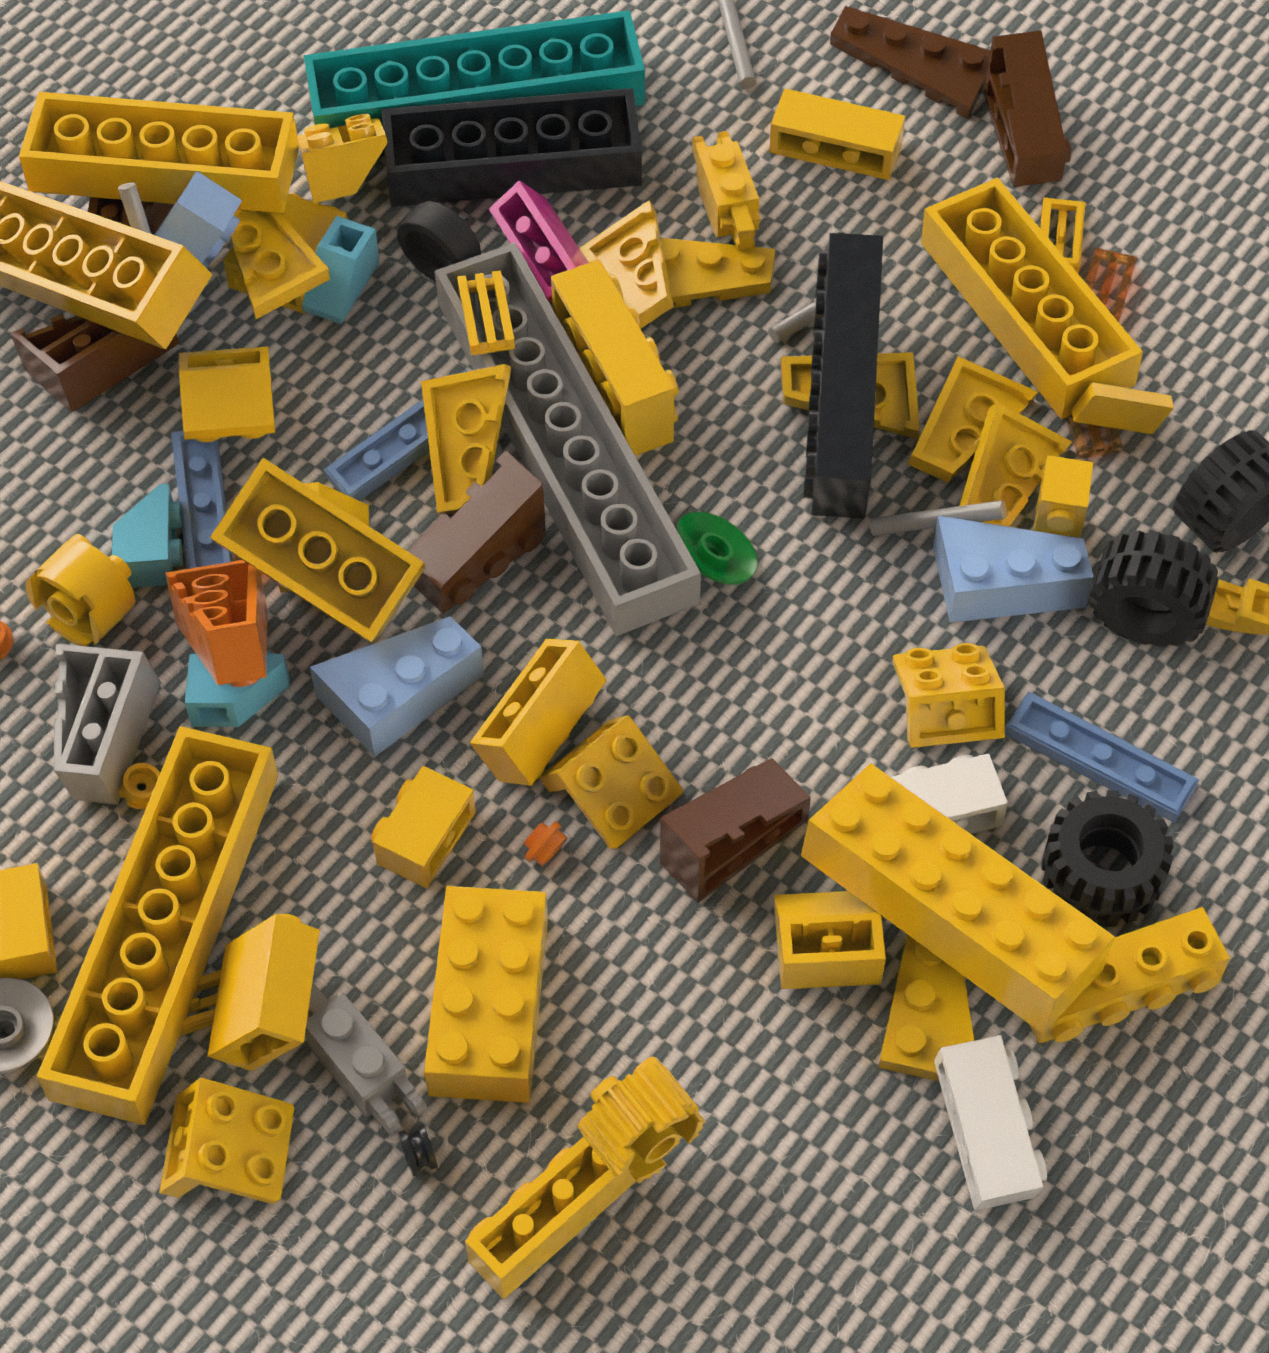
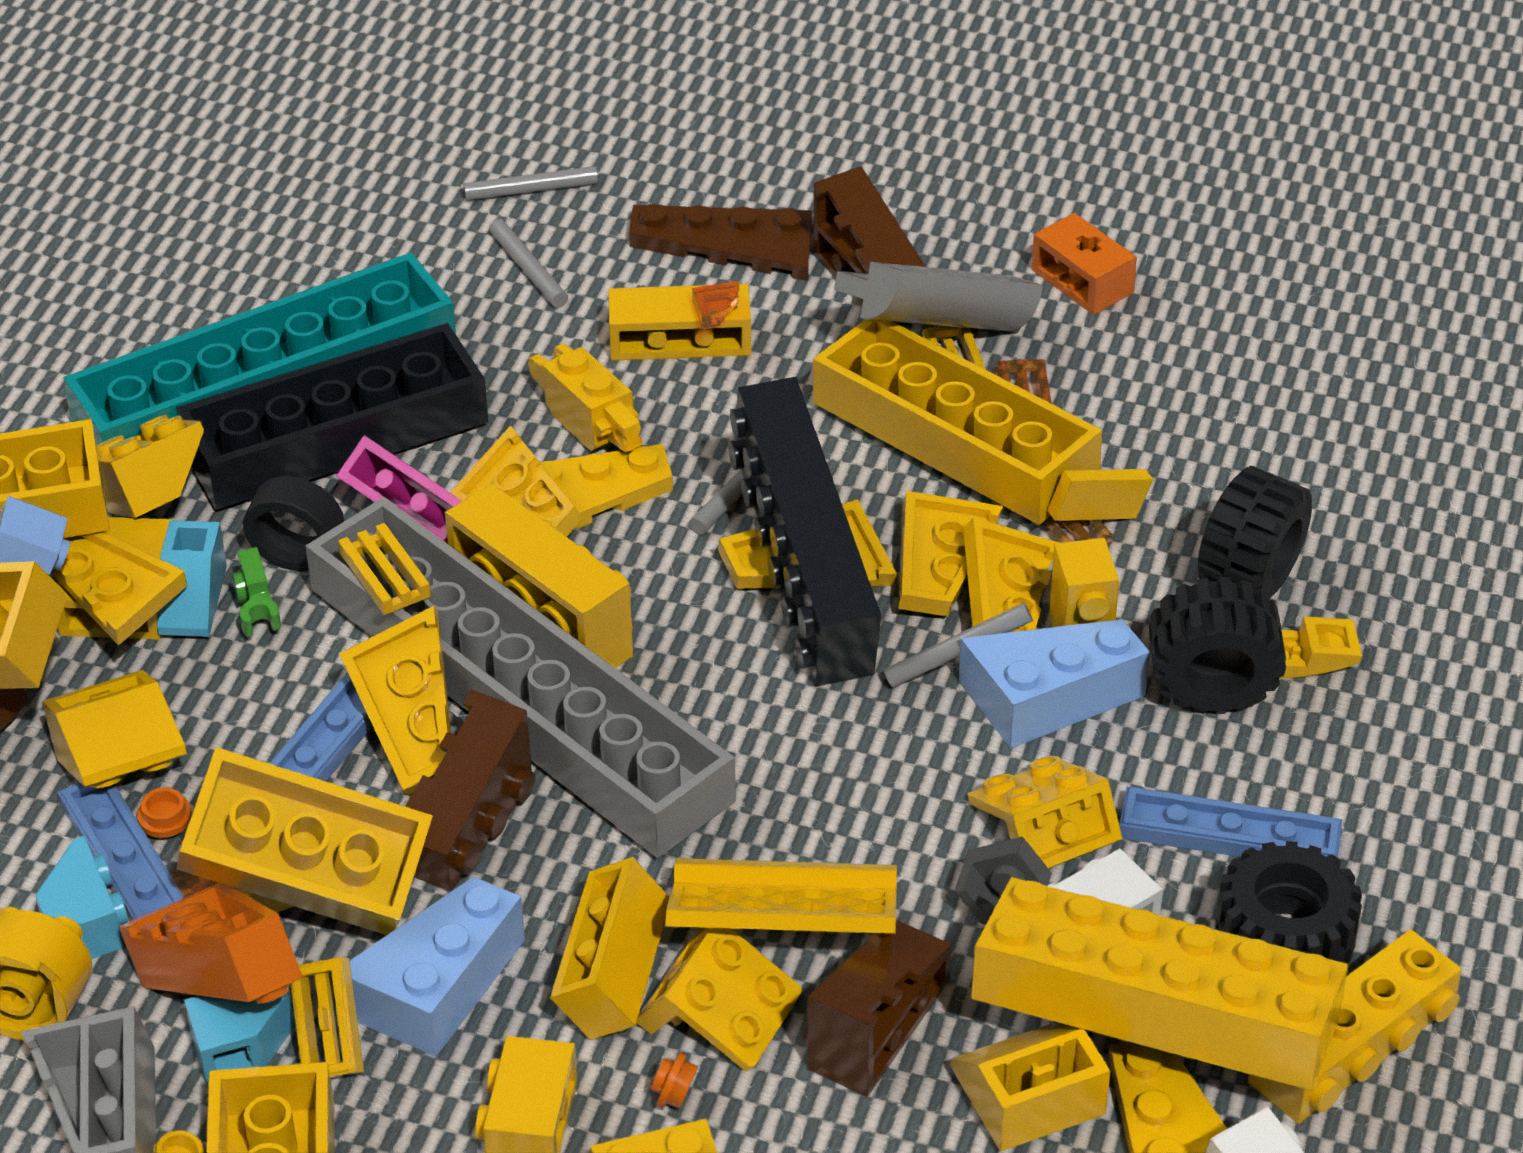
camera: 20 degrees left, 15 degrees down
(238, 472) = (164, 813): none -> orange plate
(298, 706) = (346, 1016): none -> yellow tile
(389, 291) = (253, 588): none -> bright green plate
(705, 705) = (783, 896): none -> yellow fence
(718, 548) = (740, 737): green dish -> none
(867, 128) = (715, 302): none -> clear orange tile
(880, 740) = (990, 869): none -> dark grey bracket
(1061, 177) = (941, 296): none -> light grey brick
(1212, 171) = (1084, 263): none -> orange brick

